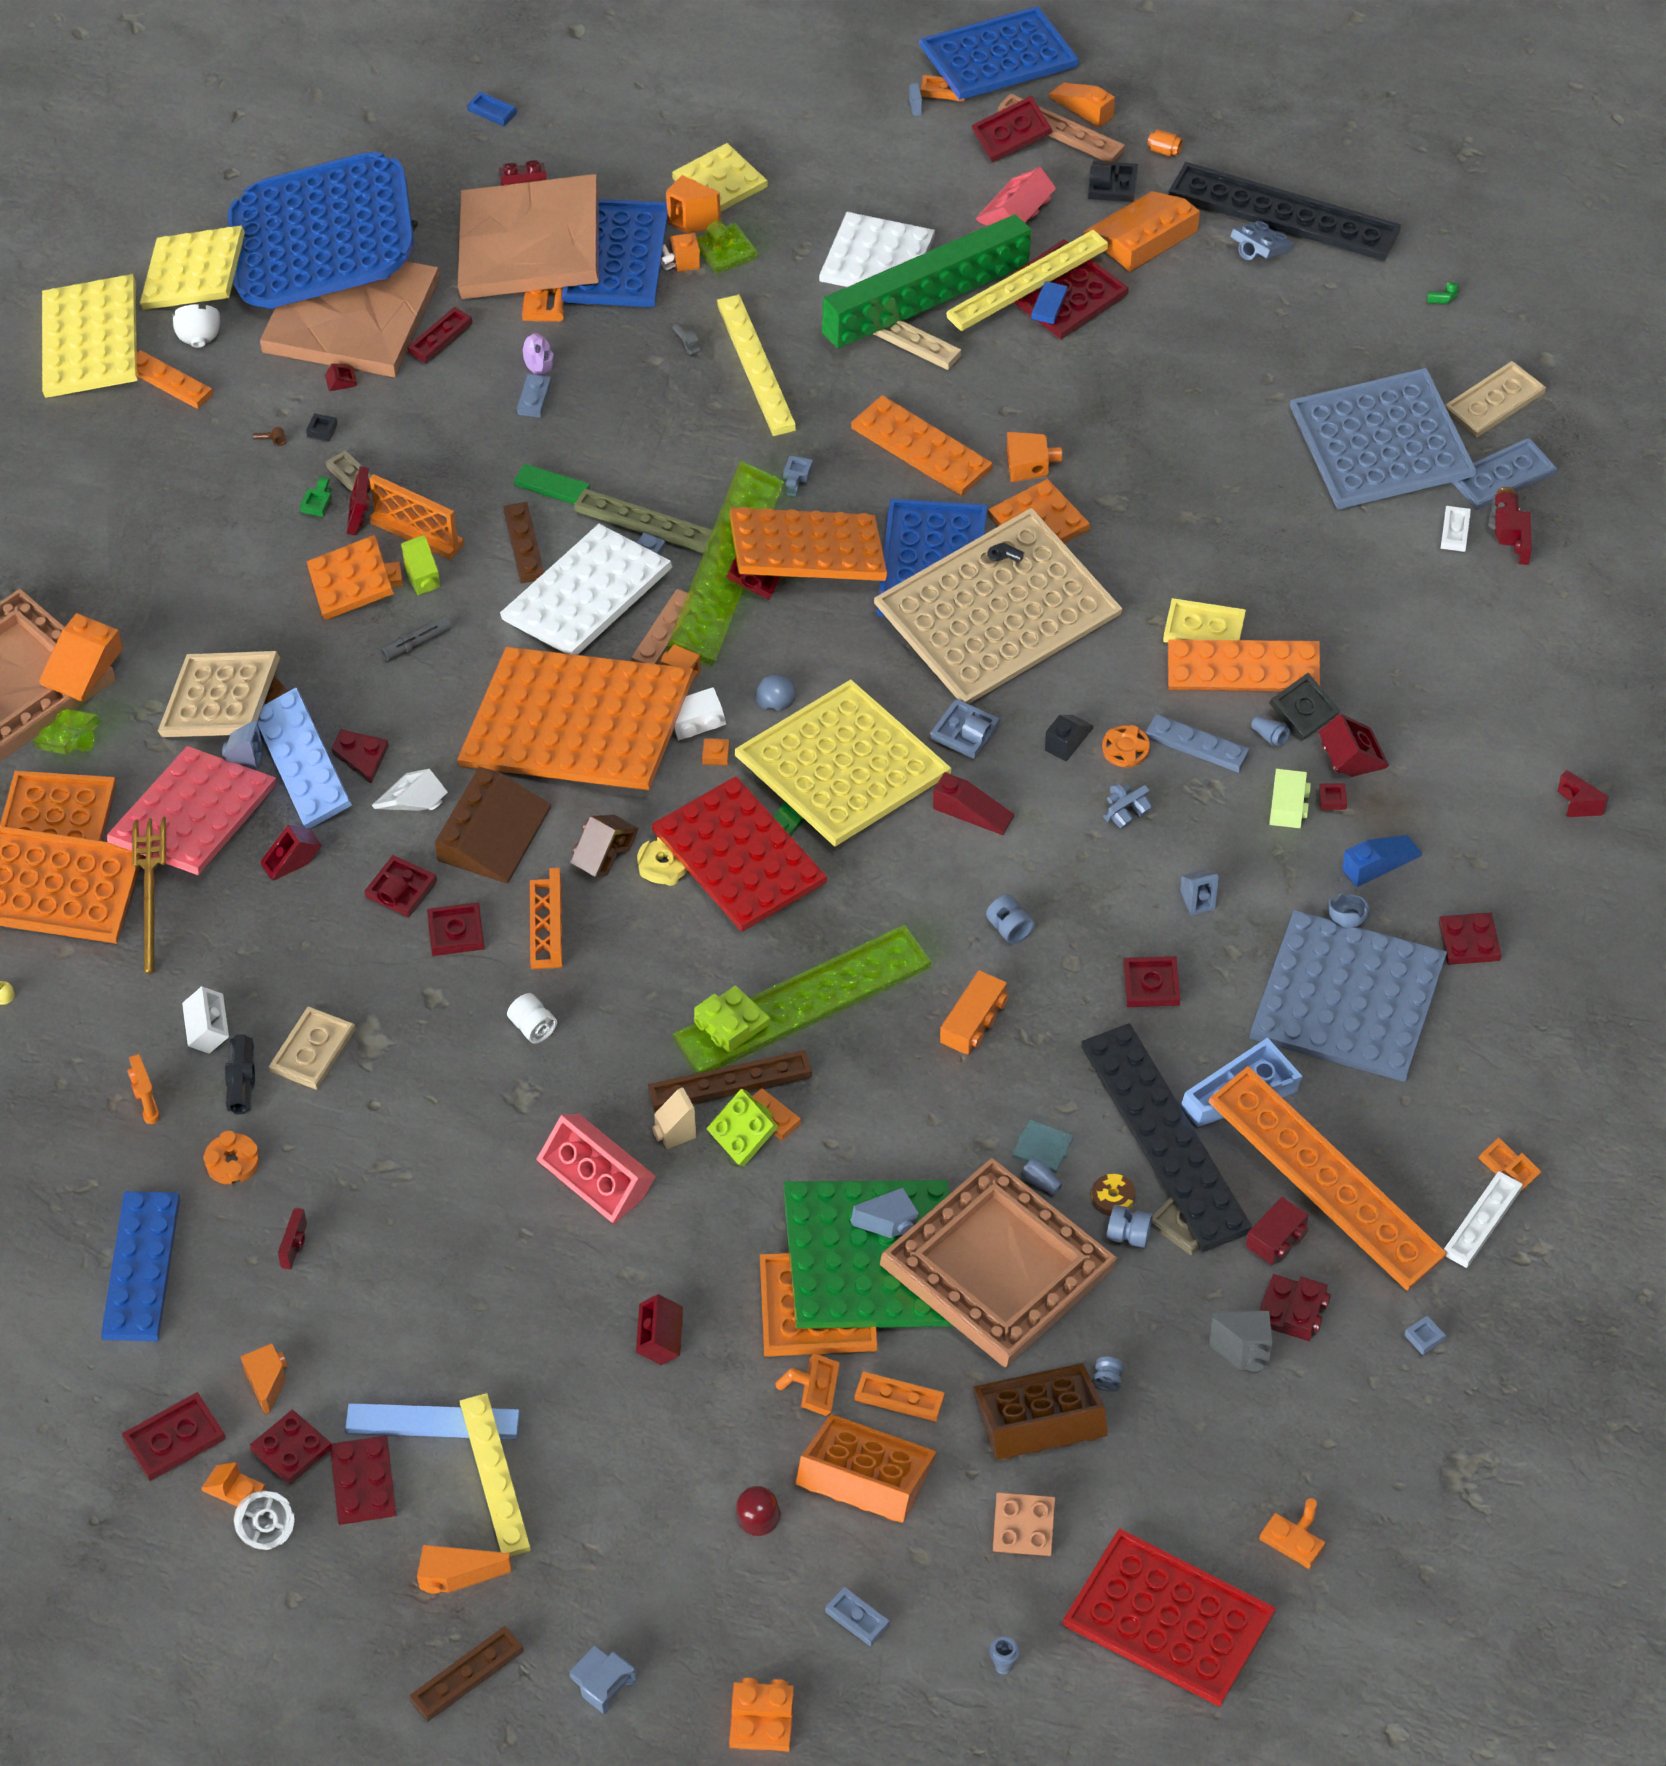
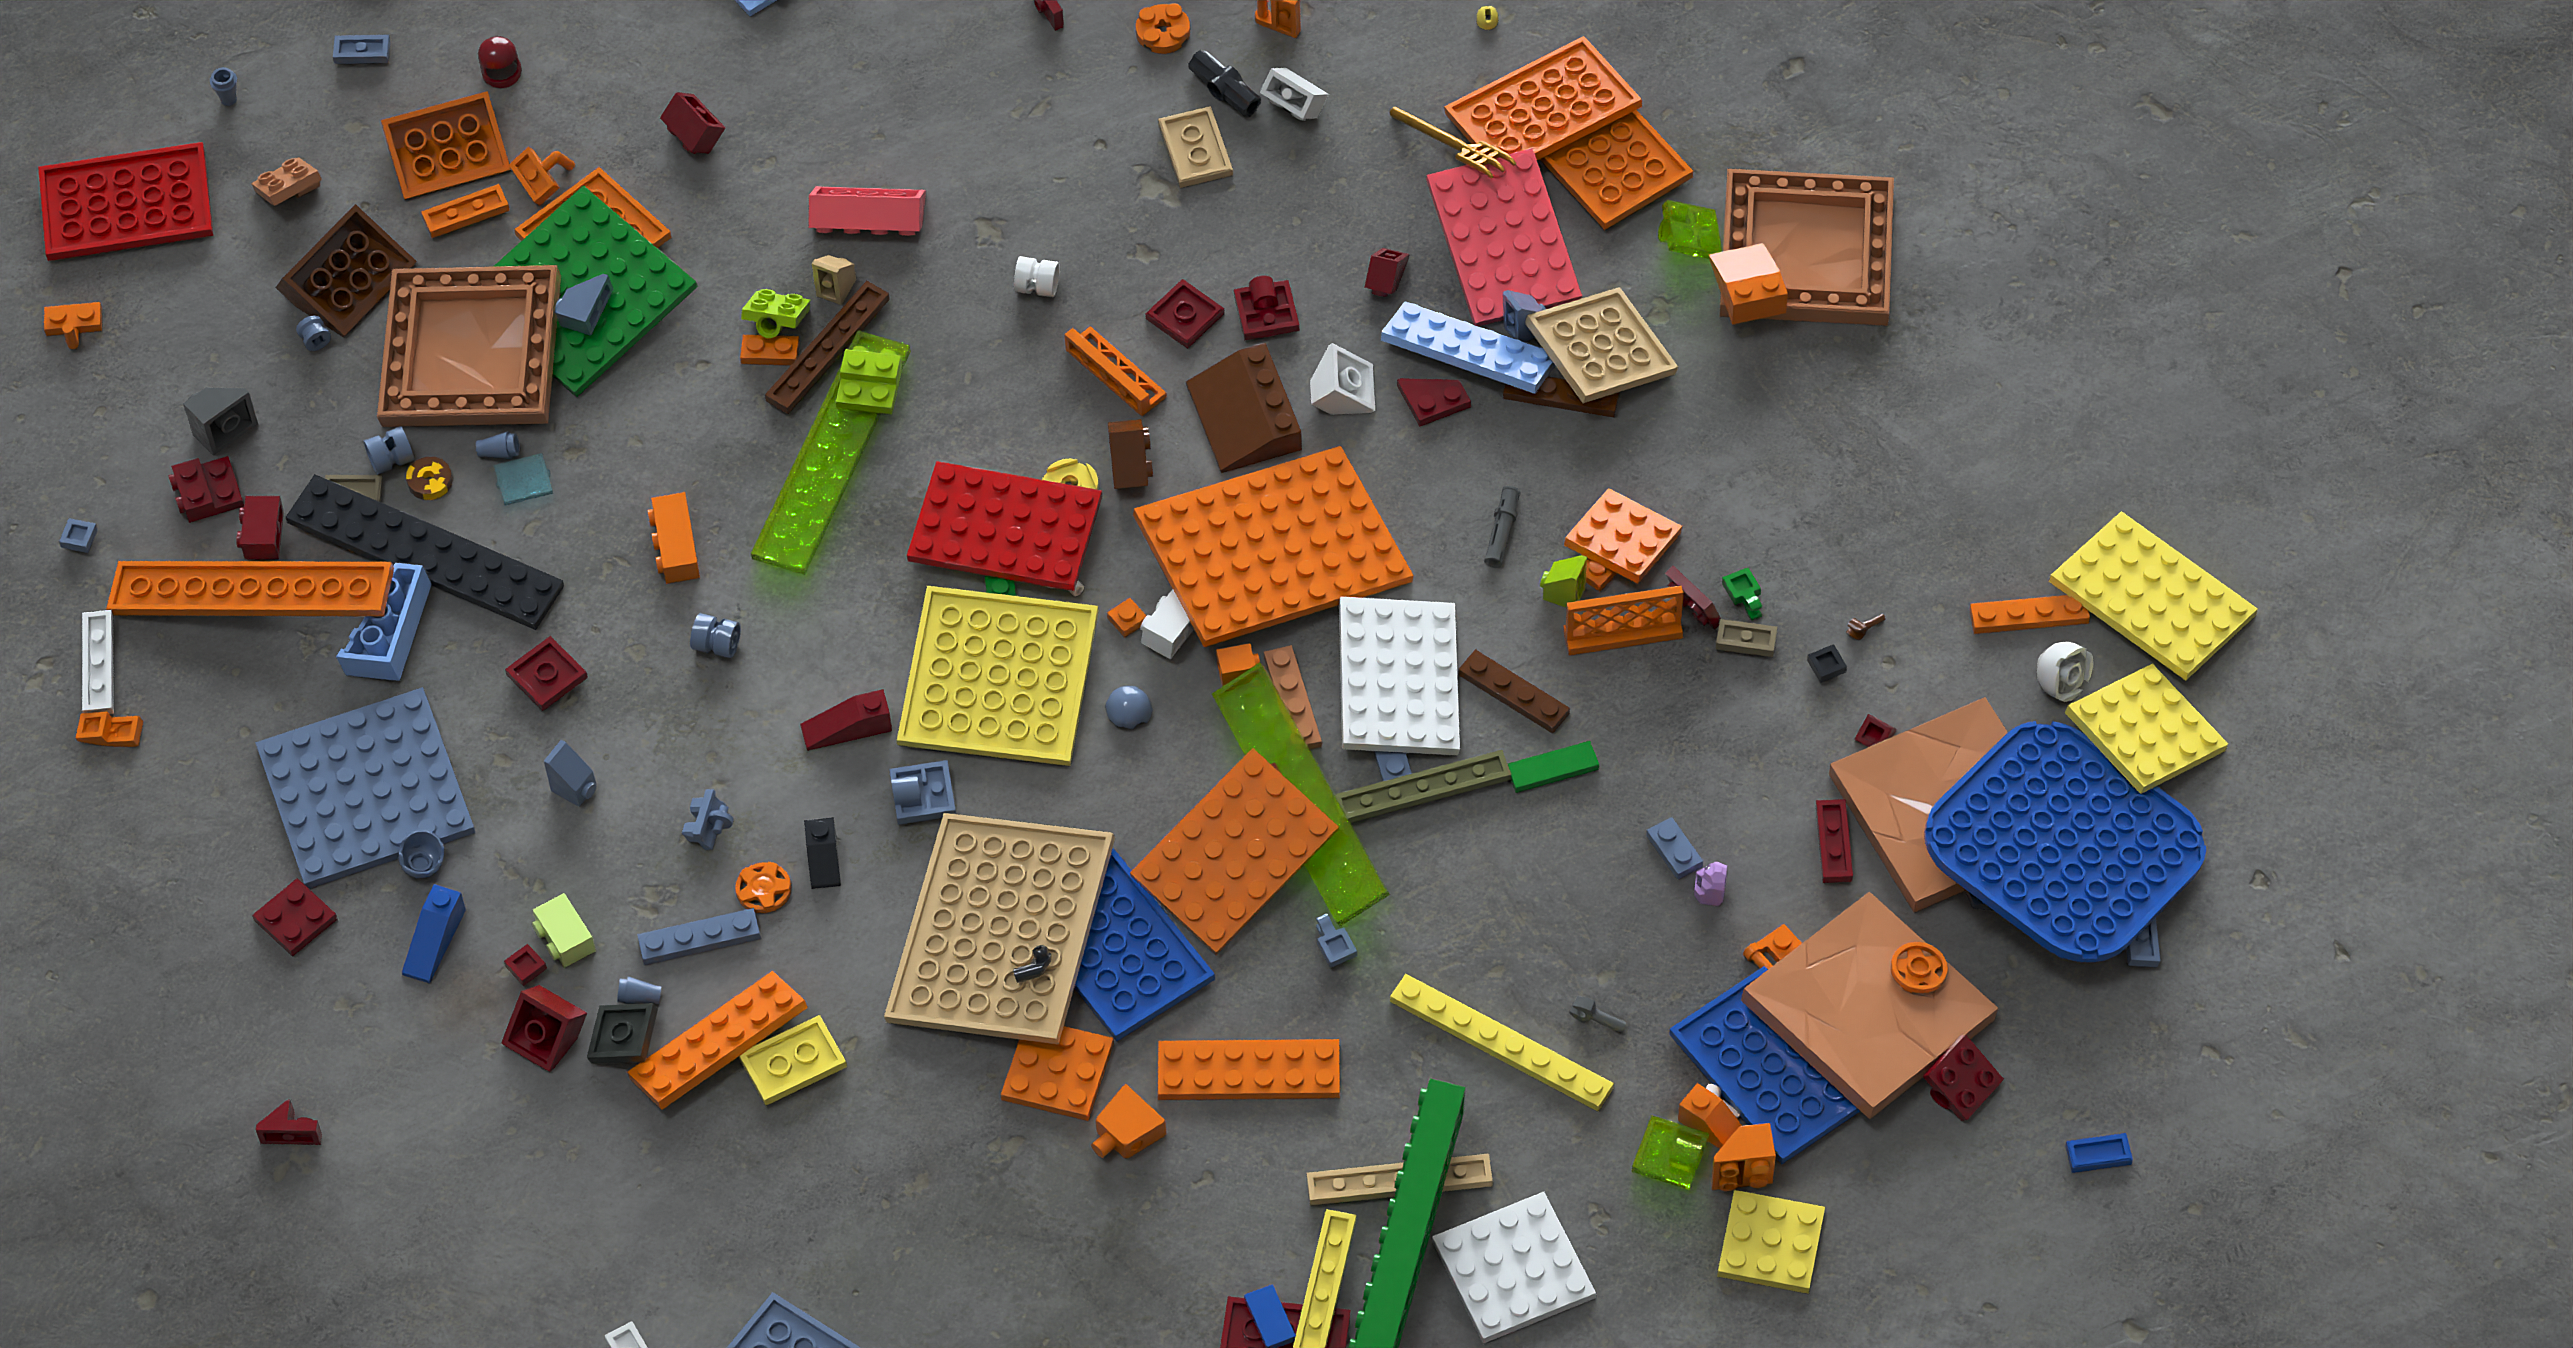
camera: 140 degrees right, 5 degrees up
(482, 229) = (1918, 968): none -> orange wheel

